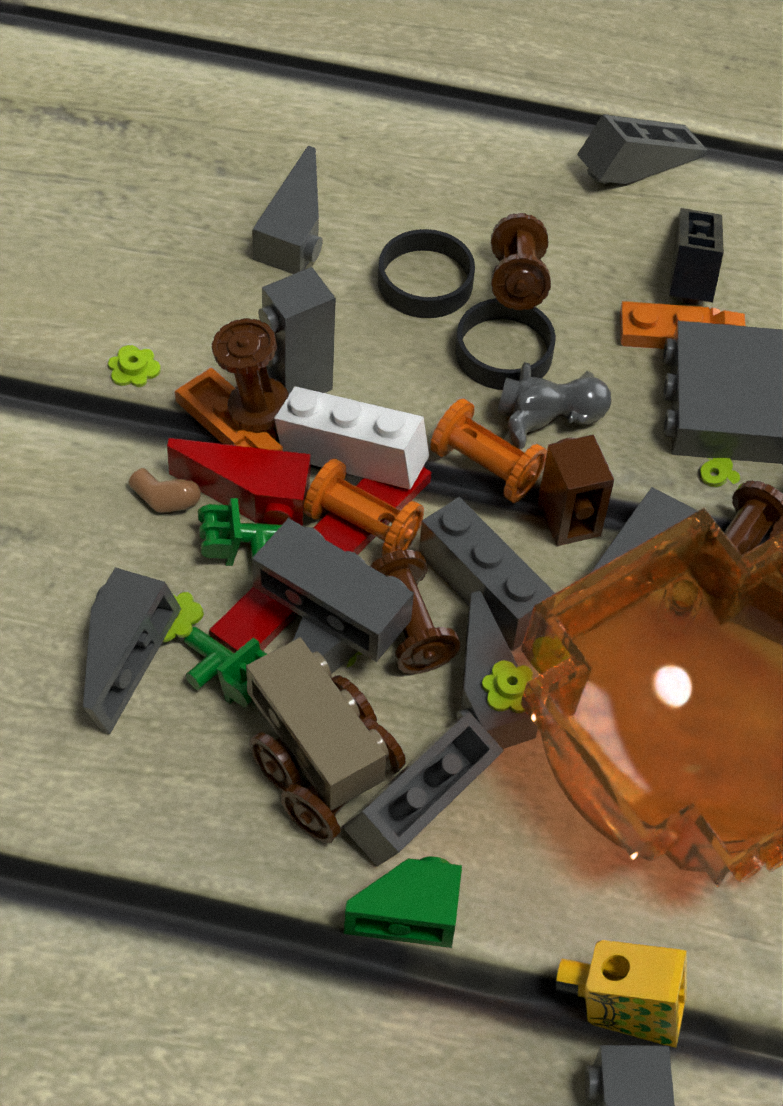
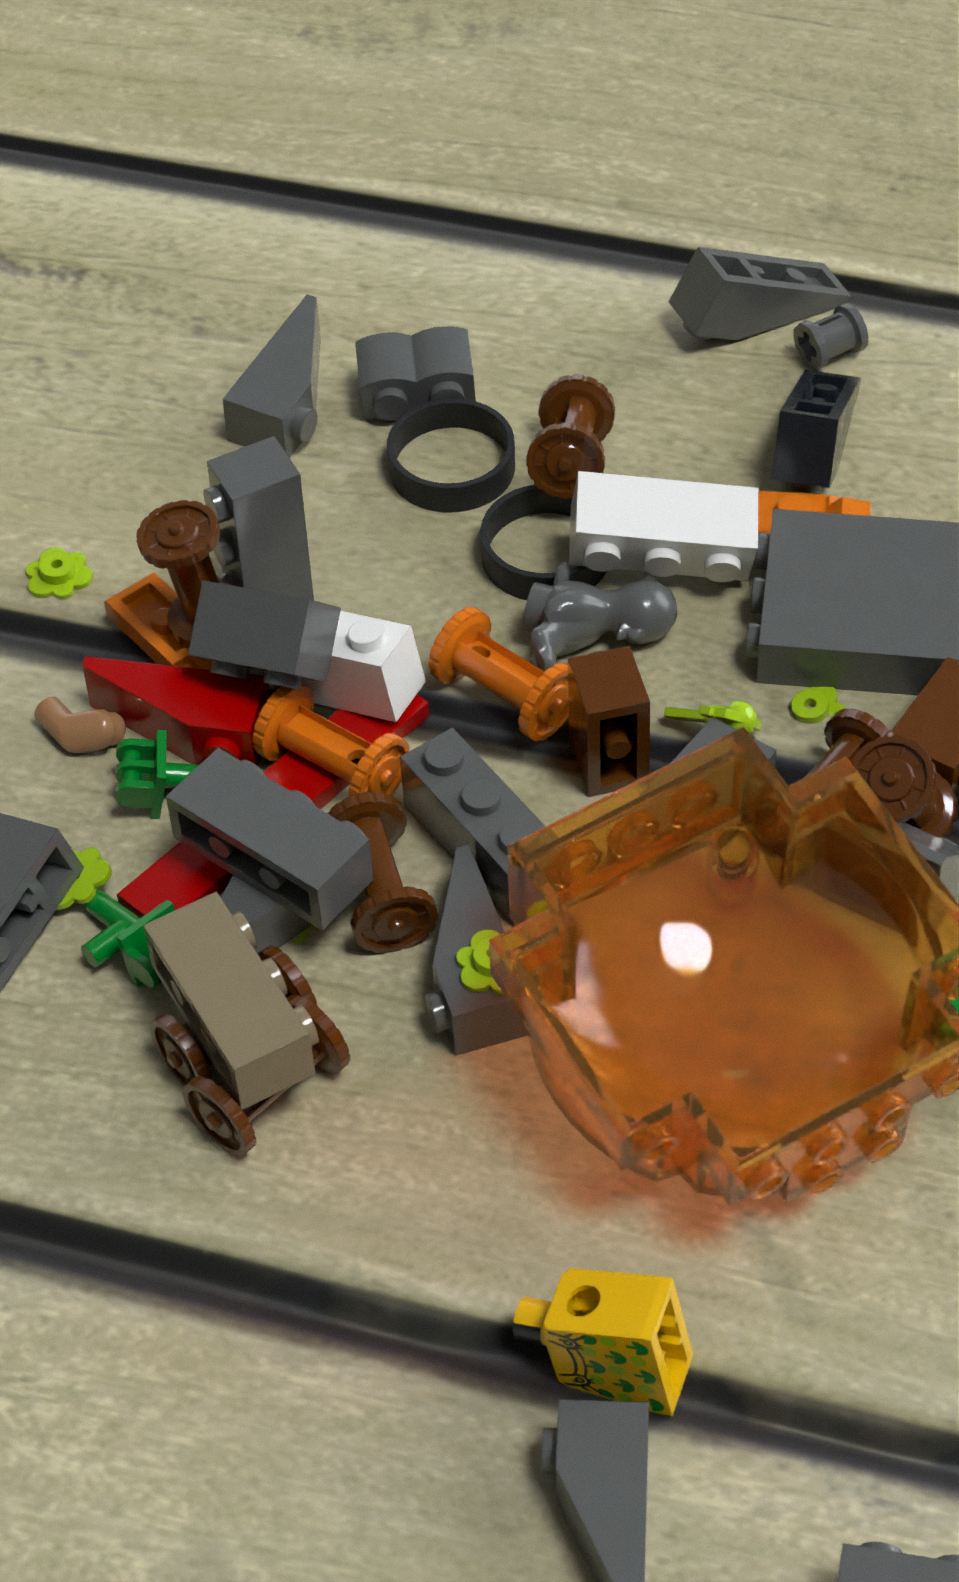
camera: 10 degrees right, 5 degrees down
(313, 423) = (264, 632): none -> dark grey brick
(387, 207) = (411, 370): none -> dark grey brick
(409, 904) = (335, 1229): green slope -> none
(422, 789) = (366, 1086): dark grey brick -> none
(598, 334) = (663, 526): none -> white brick
(668, 484) = (735, 715): none -> lime piece
(699, 182) = (831, 336): none -> dark grey bush

